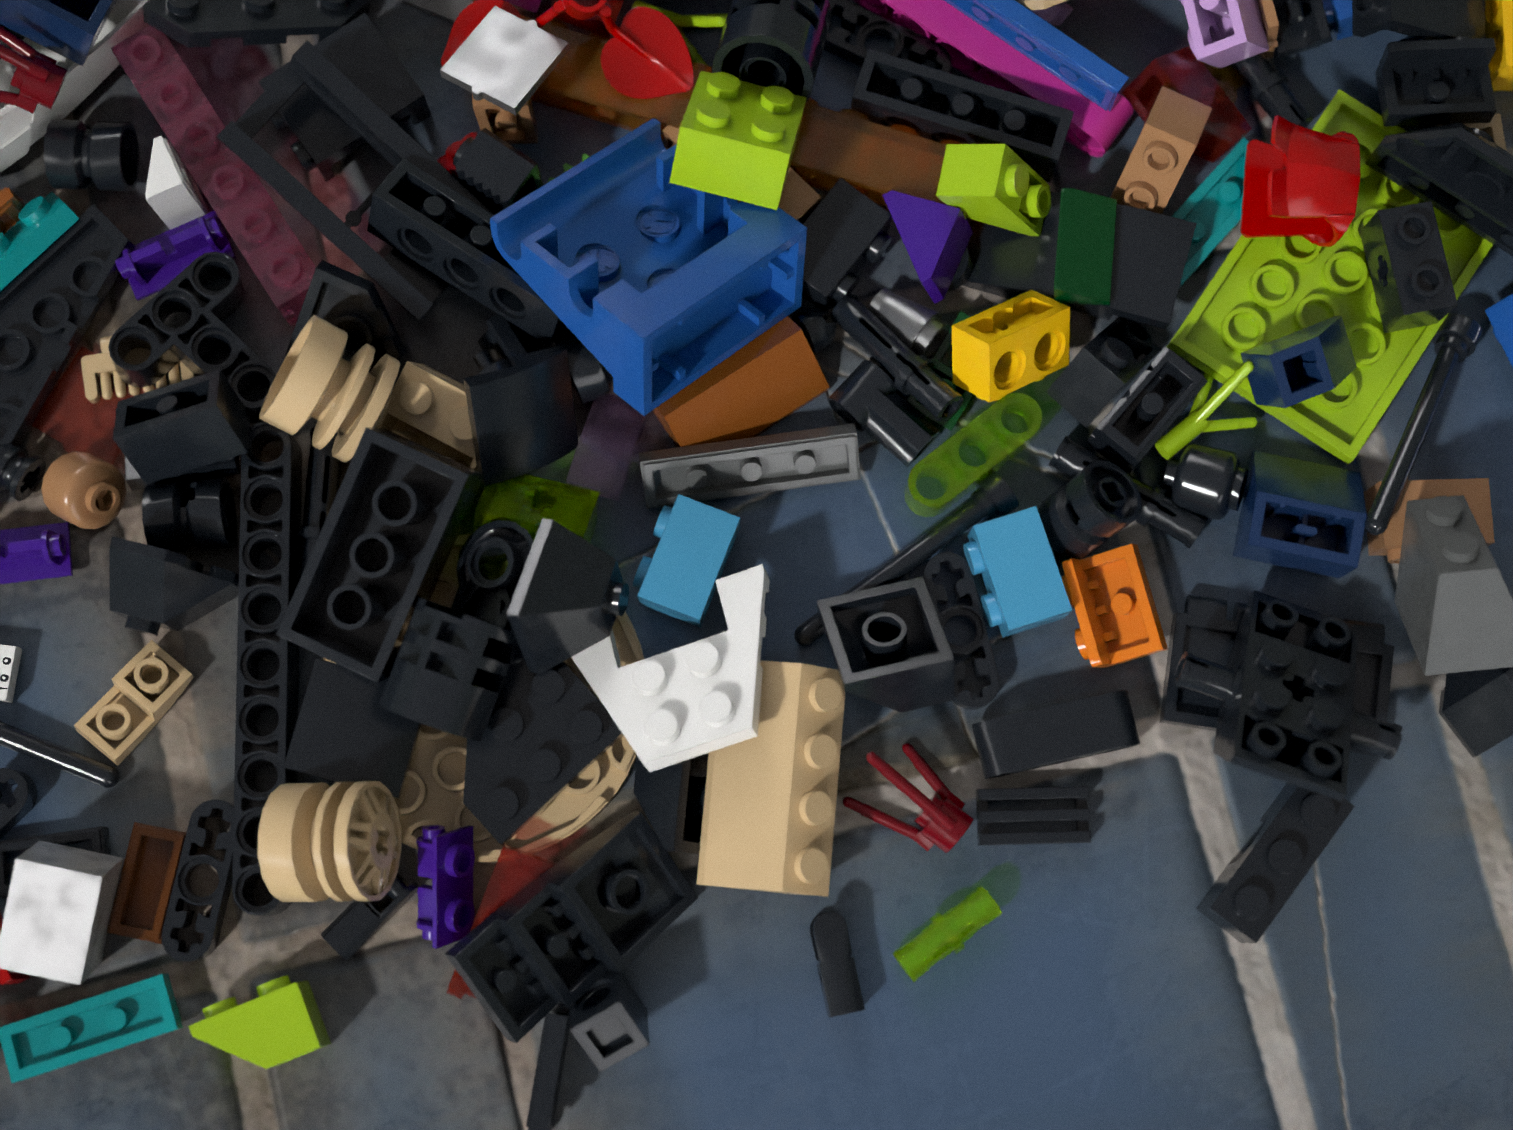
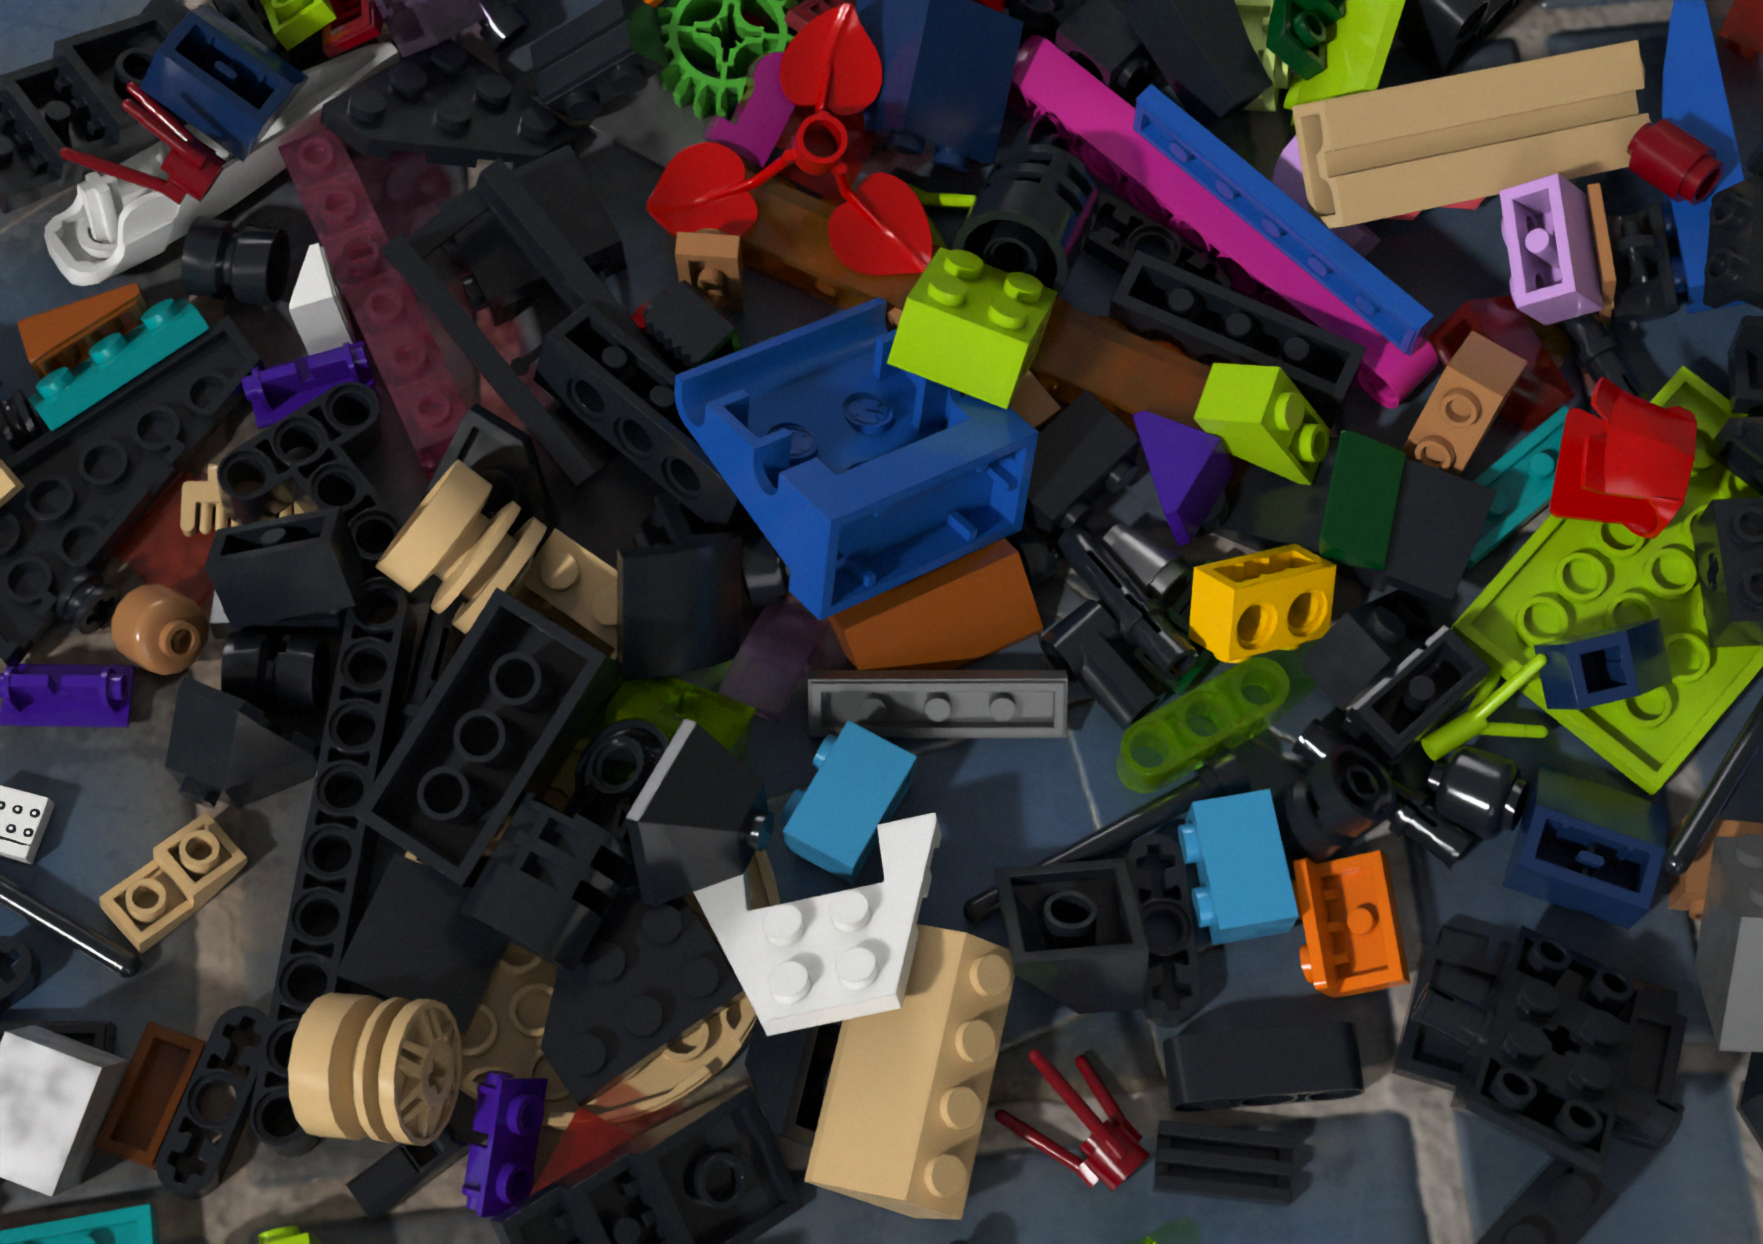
camera: 10 degrees right, 10 degrees down
(505, 60) = (719, 209): piece -> none

